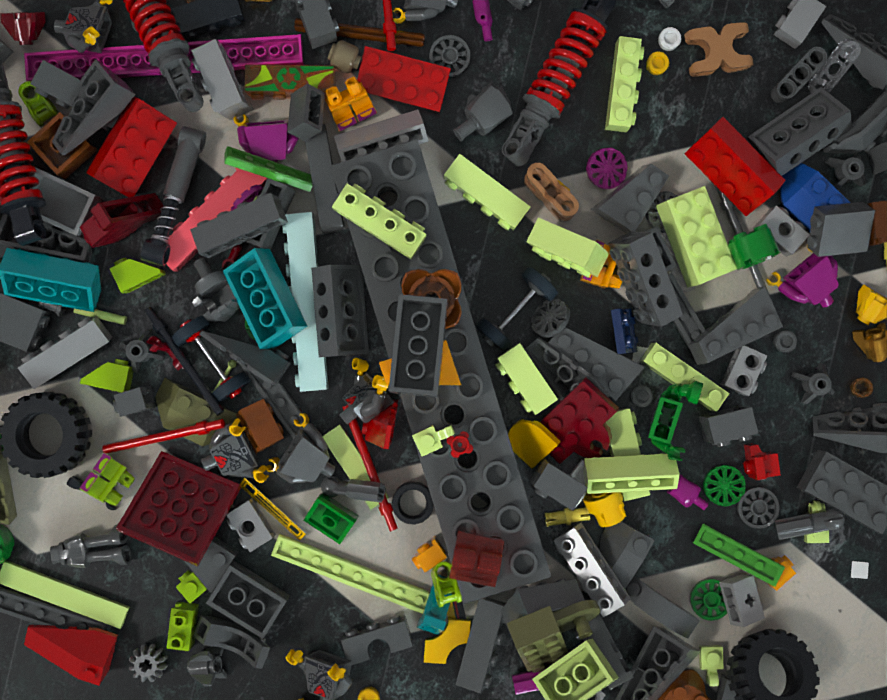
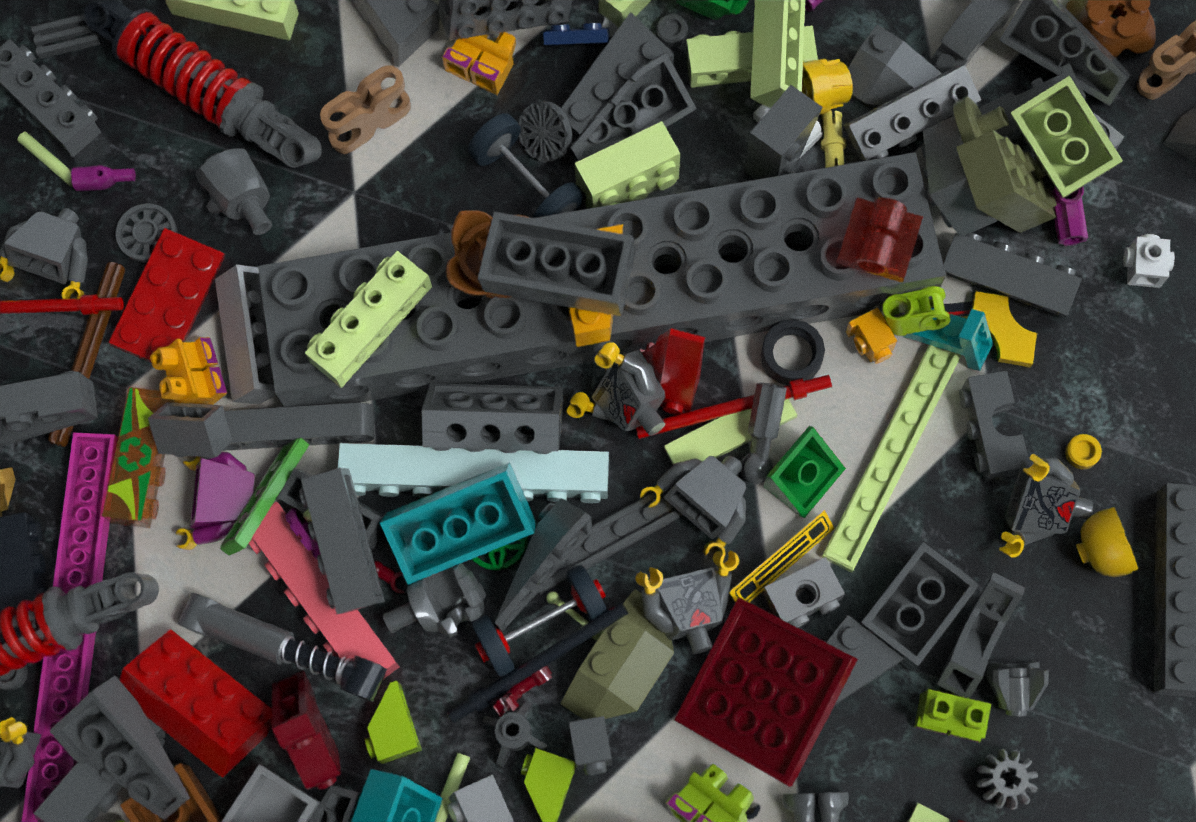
camera: 80 degrees left, 15 degrees down
(190, 586) = (888, 691): lime brick -> none
(200, 428) = (644, 639): red bar -> none
(220, 80) = (118, 550): light grey wedge -> none
(260, 425) = (657, 549): dark orange brick -> none
(344, 56) = (117, 374): dark tan head -> none
(430, 439) = (698, 286): yellowish green plate -> none
(465, 448) = (713, 237): red plate -> none
(486, 192) = (352, 200): yellowish green brick -> none
(532, 441) = (718, 165): yellow tile -> none
(567, 248) = (447, 90): yellowish green brick -> none
(579, 421) = (699, 108): dark red plate -> none
(606, 168) = (344, 40): magenta wheel -> none

